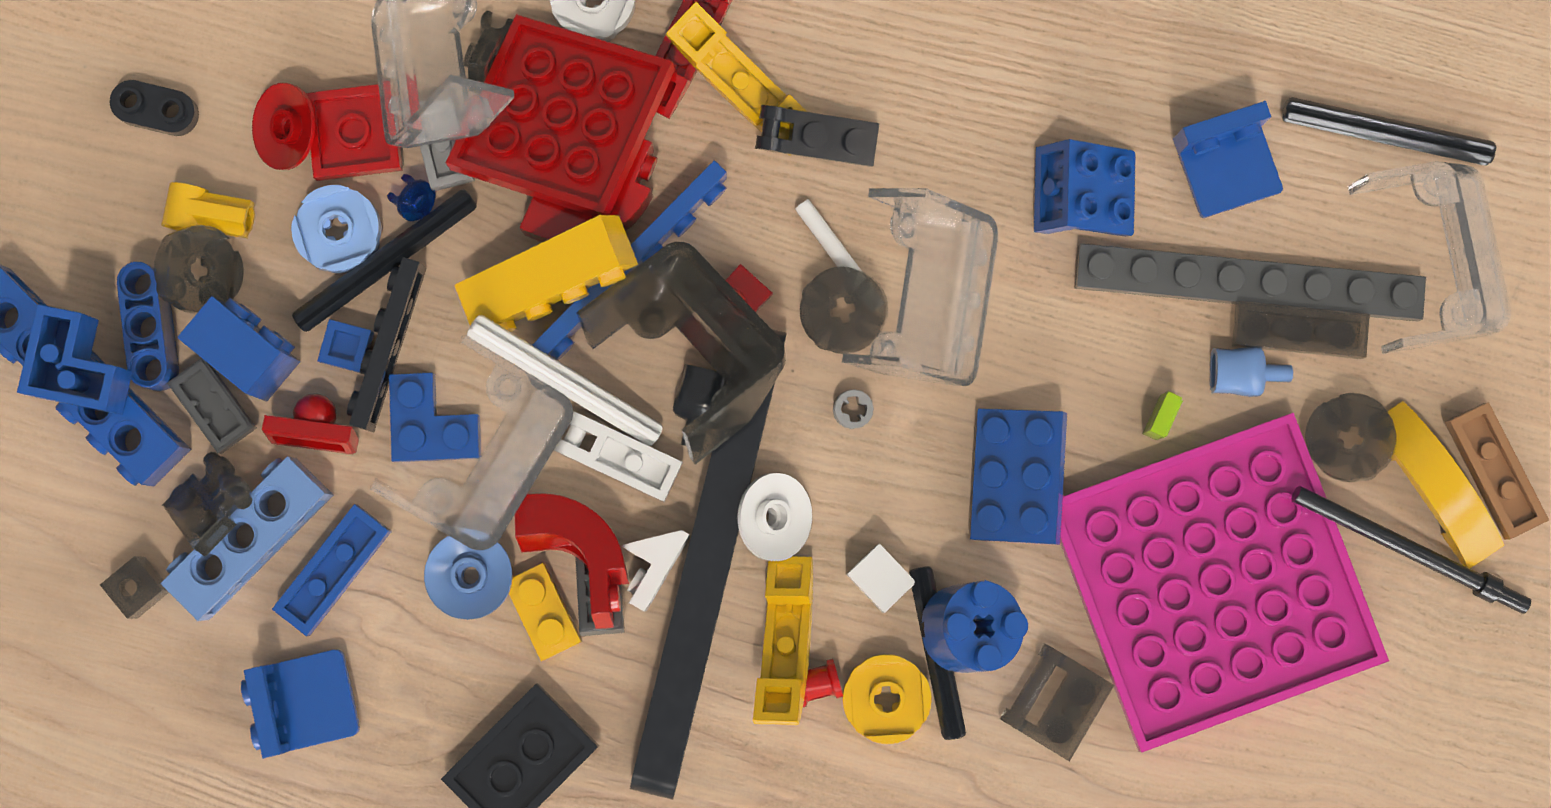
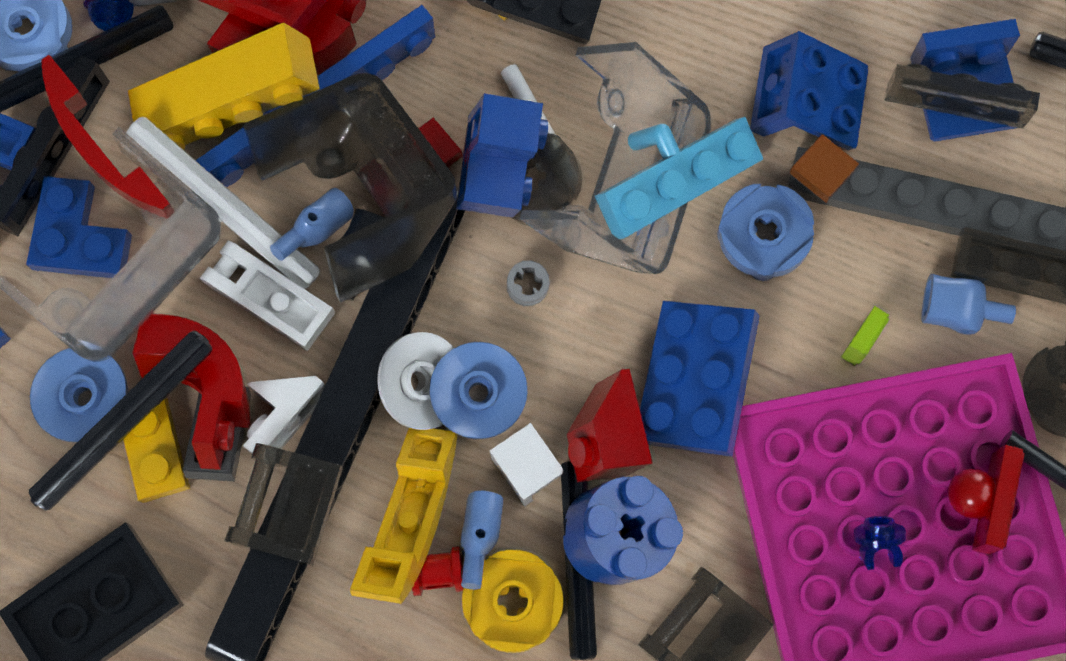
camera: 15 degrees right, 10 degrees down
(402, 306) = (66, 102): none -> red slope
(516, 597) = (120, 420): none -> black axle
(652, 386) = (315, 223): none -> medium blue piece
(692, 651) = (299, 508): none -> clear smoke plate
(812, 307) = (497, 146): none -> blue brick
(849, 520) = (478, 365): none -> medium blue dish
(849, 647) = (479, 534): none -> medium blue piece
(947, 537) = (609, 432): none -> red slope
(978, 294) = (678, 175): none -> medium azure plate
(1062, 353) = (766, 204): none -> medium blue plate
(1107, 266) = (824, 168): none -> dark orange tile
(1196, 596) = (879, 534): none -> clear blue plate
(1224, 176) = (962, 95): none -> clear smoke plate
(1286, 550) = (989, 497): none -> red tile

